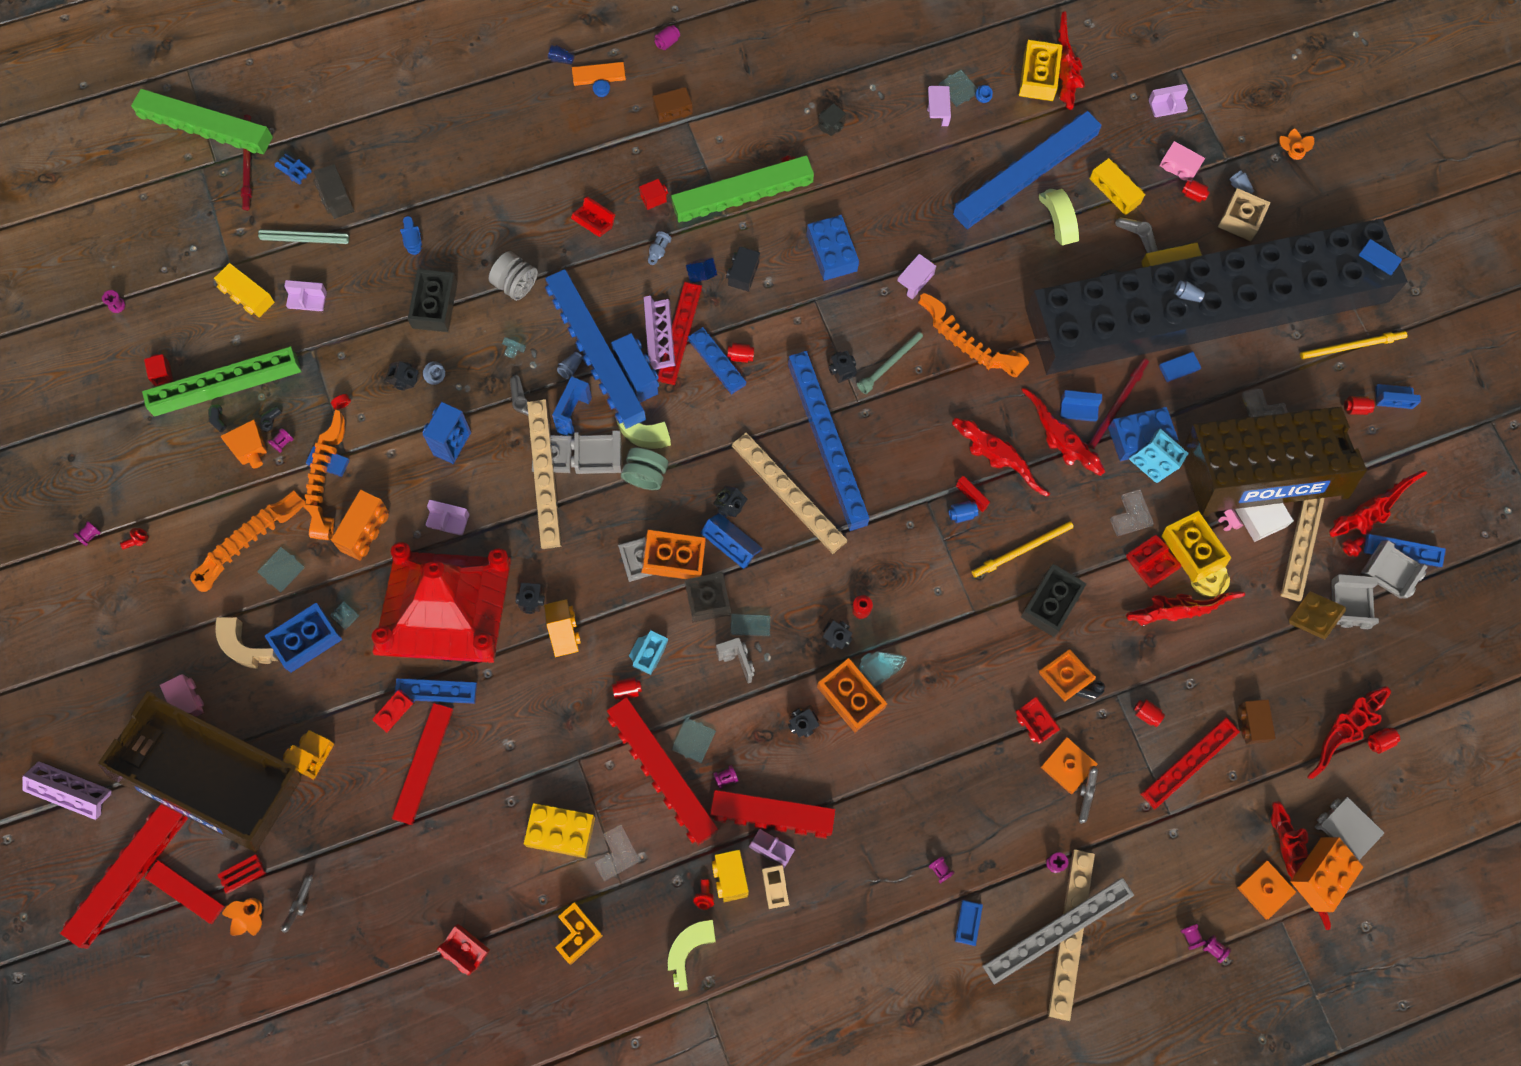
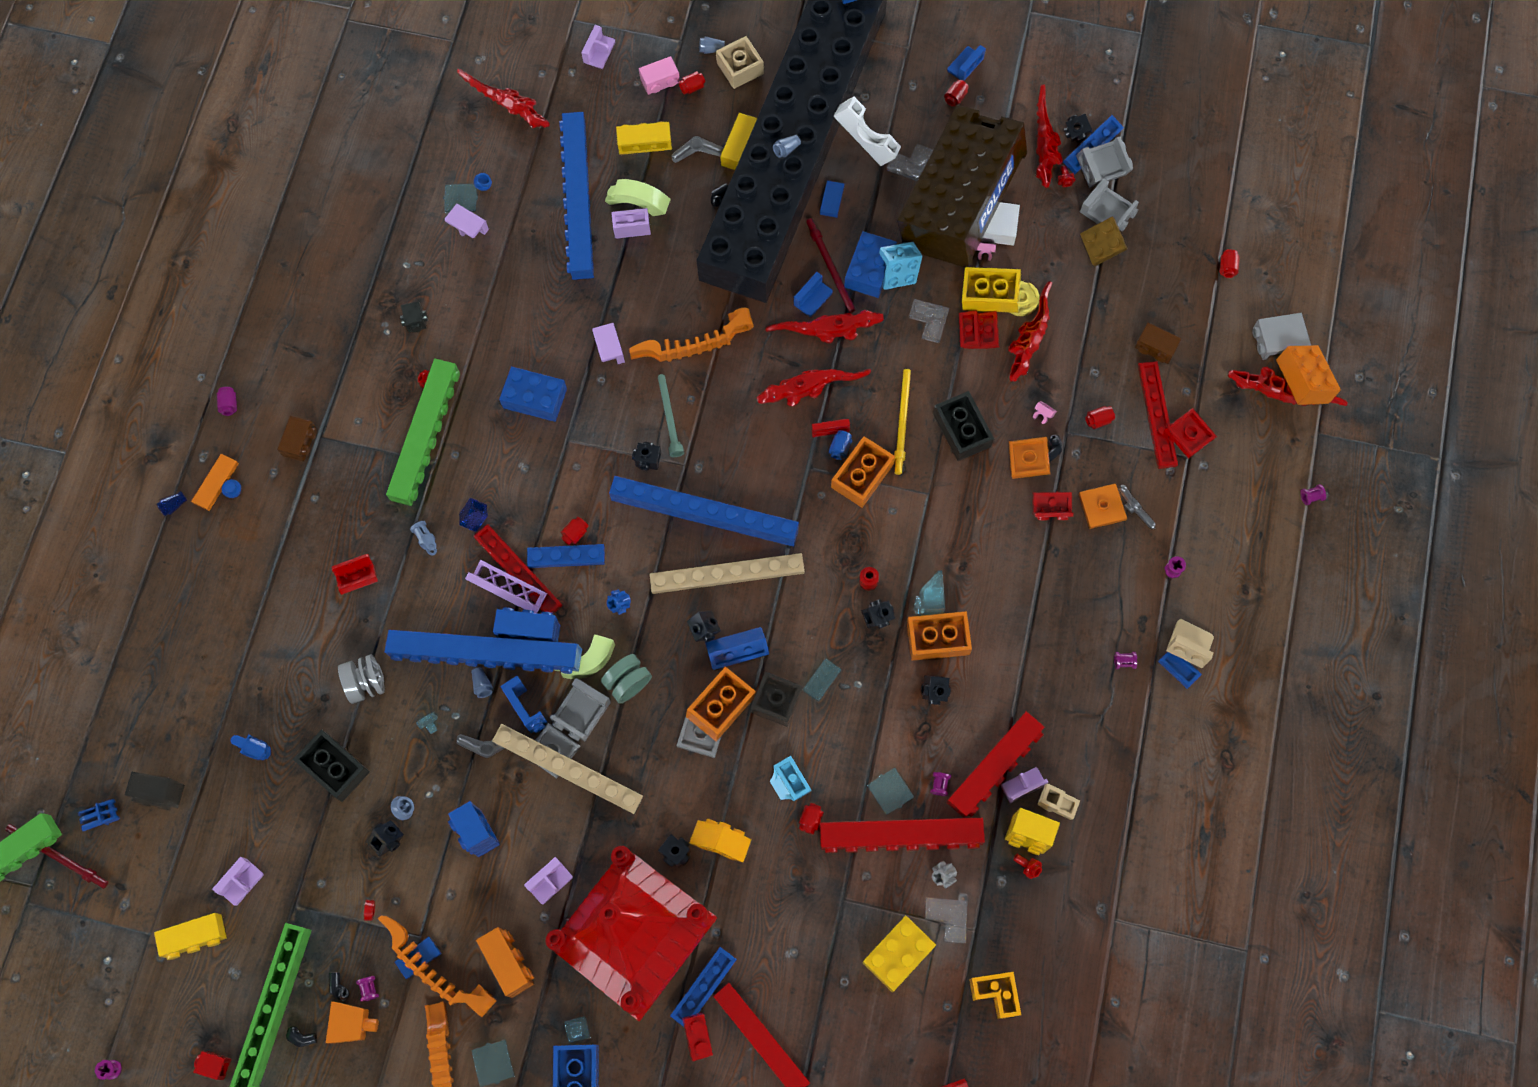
camera: 50 degrees left, 0 degrees up
(303, 236) = (175, 847): axle -> none
(650, 827) = (944, 874): none -> light grey gear
(653, 194) = (370, 509): red brick -> none
(687, 940) = (1060, 910): yellowish green arch -> none
(705, 423) = (618, 601): none -> blue gear
(728, 650) = (844, 701): light grey bracket -> none
(744, 268) = (498, 478): black brick -> none
(952, 543) = (862, 471): none -> orange brick
(996, 918) = (1191, 643): none -> tan bracket
(1033, 224) = (631, 223): none -> lavender panel
(1040, 70) = (496, 124): yellow brick -> none
(1058, 930) = (1229, 603): light grey tile -> none
(1069, 949) = (1237, 595): tan plate -> none
(1120, 661) = (1045, 410): none -> bright pink tile
(1193, 802) = (1190, 433): none -> red tile
(1193, 936) = (1293, 505): magenta bush -> none
(1255, 370) = (880, 146): none -> white arch
(1266, 890) = (1290, 427): orange plate -> none
(1302, 549) = (1044, 216): tan plate -> none
(1350, 726) = (1203, 278): red animal -> none
(1385, 338) = (914, 36): yellow bar -> none
(1413, 531) = (1077, 122): none -> black brick

